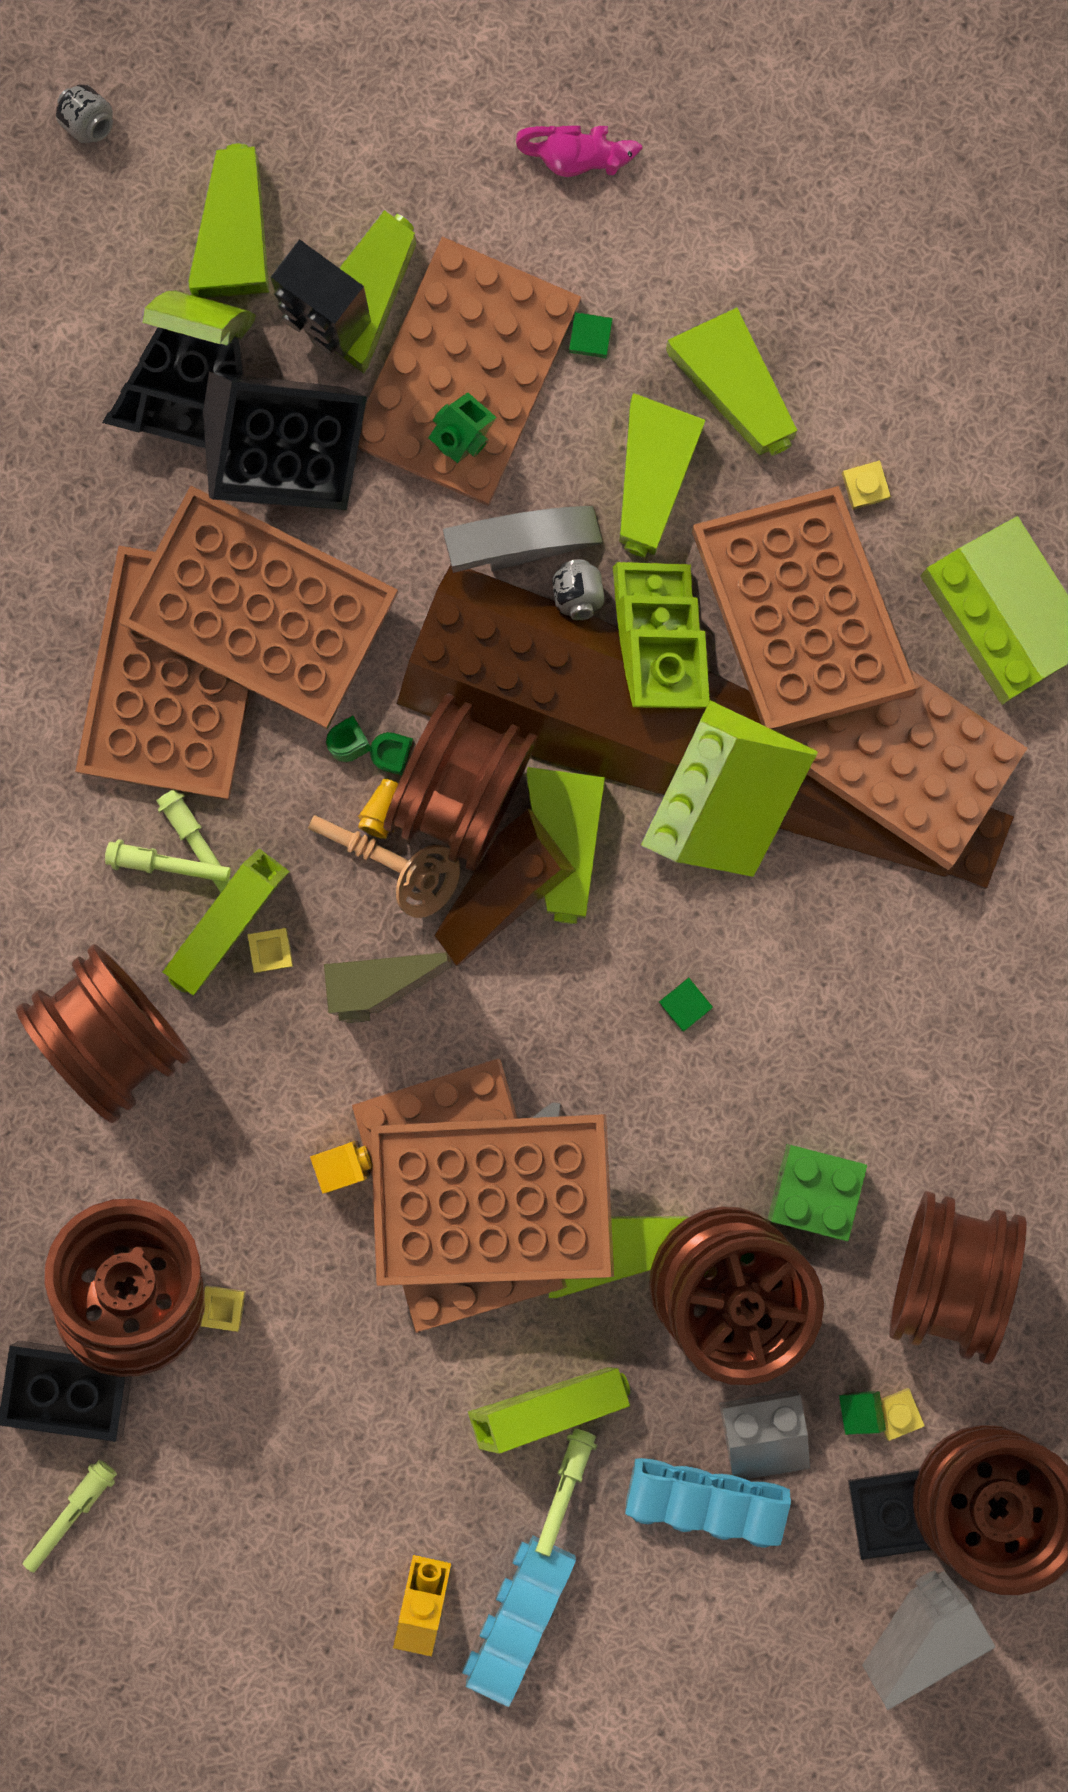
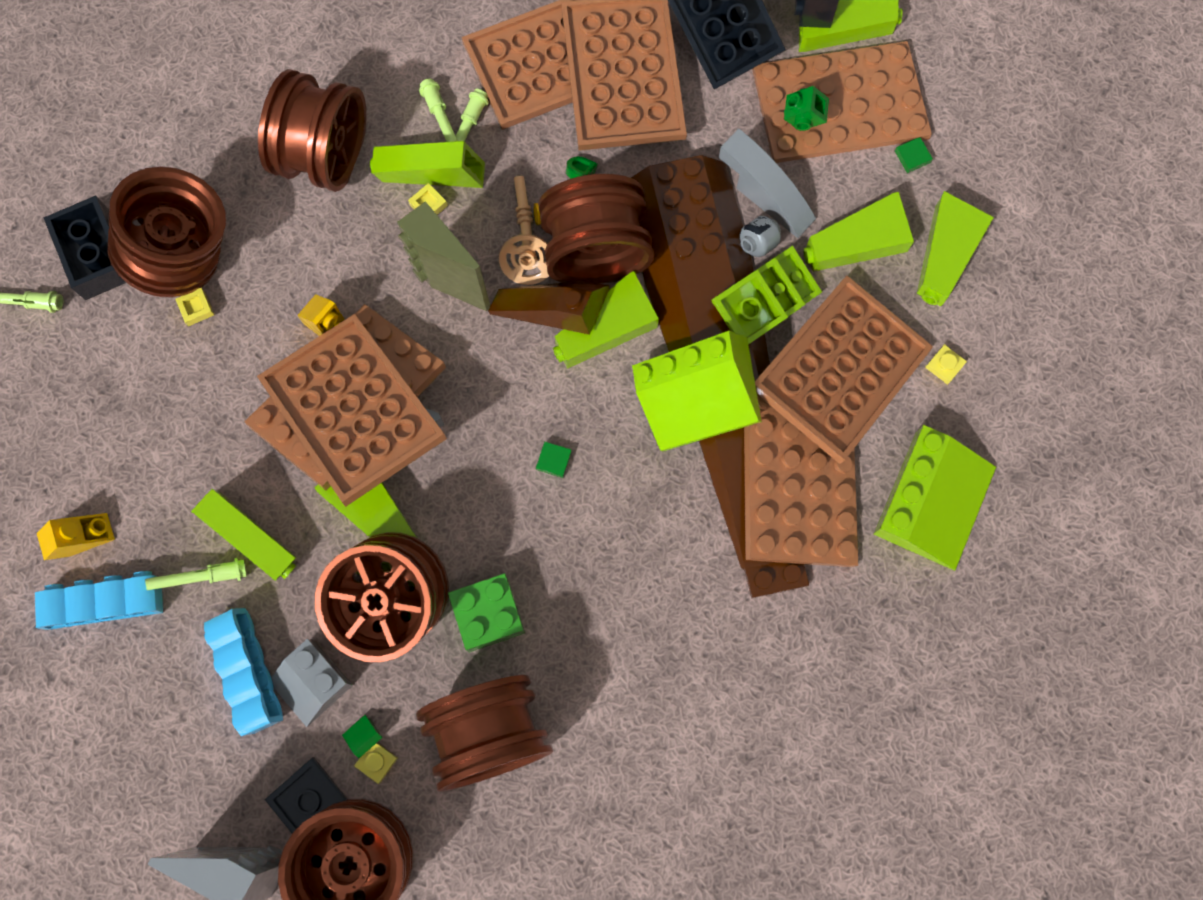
camera: 60 degrees right, 10 degrees down
(573, 153) = (1010, 78): dark pink animal -> none

